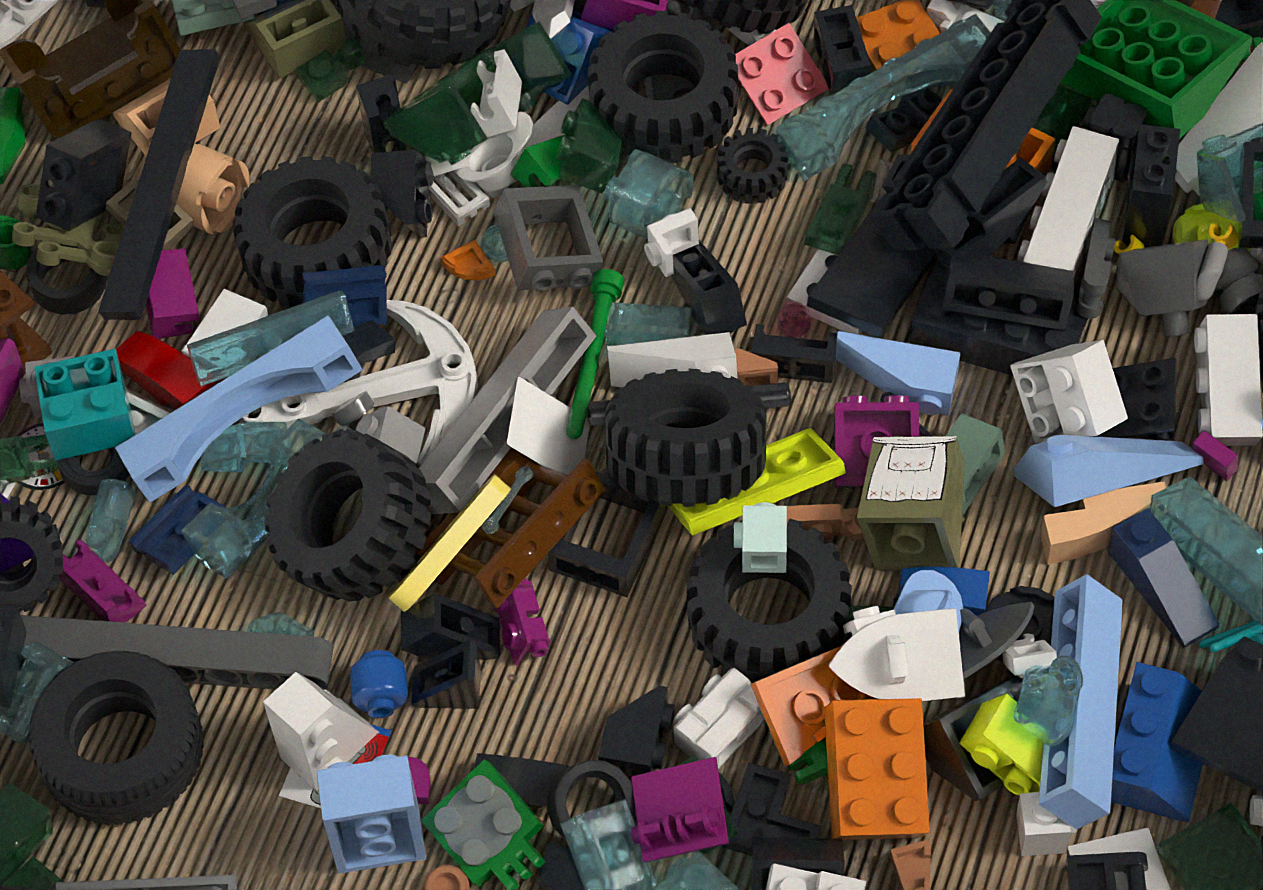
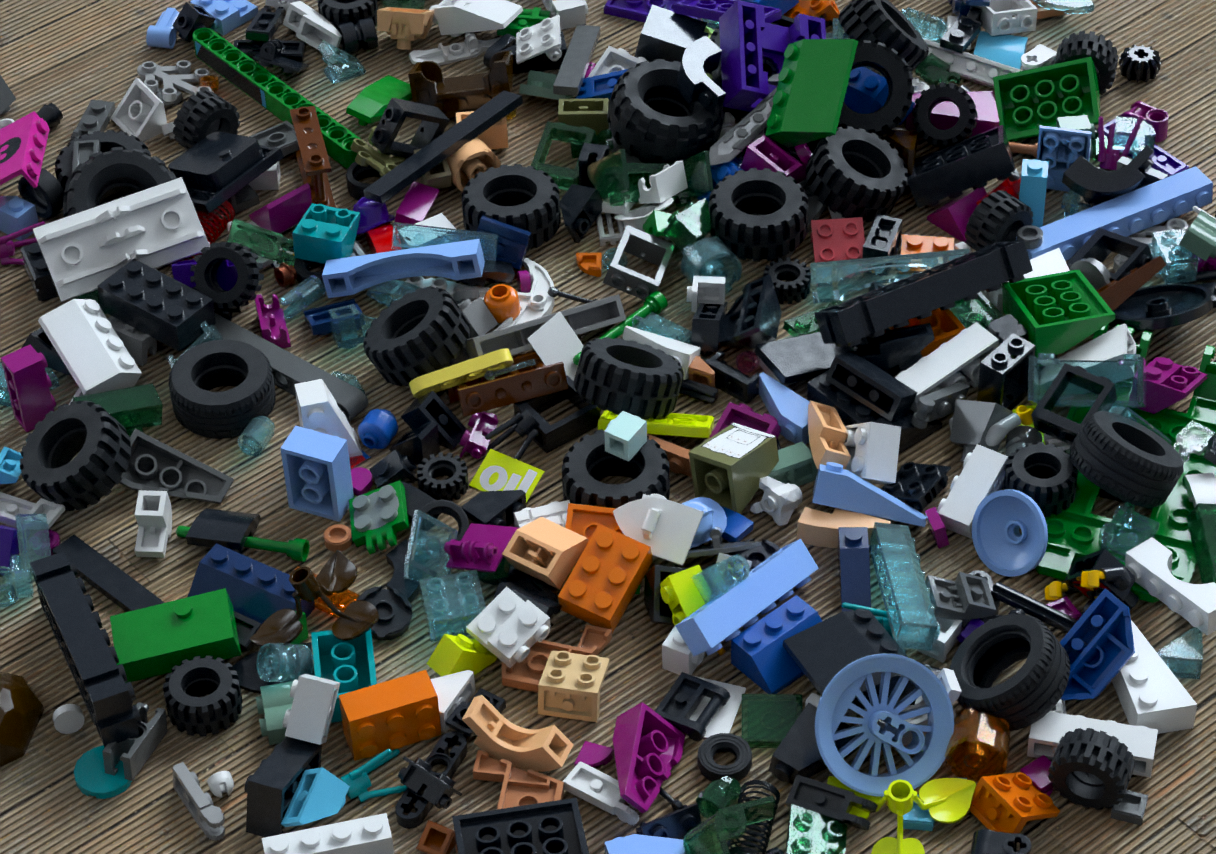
camera: 30 degrees right, 15 degrees down
(58, 493) = (285, 274): none -> copper plate
(123, 335) = (371, 214): none -> dark purple piece
(216, 786) = (256, 436): none -> clear light blue brick
(338, 144) = (560, 131): none -> clear green window
(409, 342) = (523, 281): none -> magenta tile
(414, 394) = (502, 302): none -> orange head
(449, 741) = (393, 468): none -> black bracket
(466, 339) = (554, 292): none -> black hinge
(520, 693) = (443, 466): none -> black tyre
(588, 580) = (523, 424): none -> black plant
(608, 668) = (504, 473): none -> sticker
(756, 247) = (753, 316): none -> black wedge
(774, 769) = (545, 551): none -> light nougat slope
(994, 520) = (777, 500): none -> white rock
(999, 395) = (826, 435): none -> light nougat slope

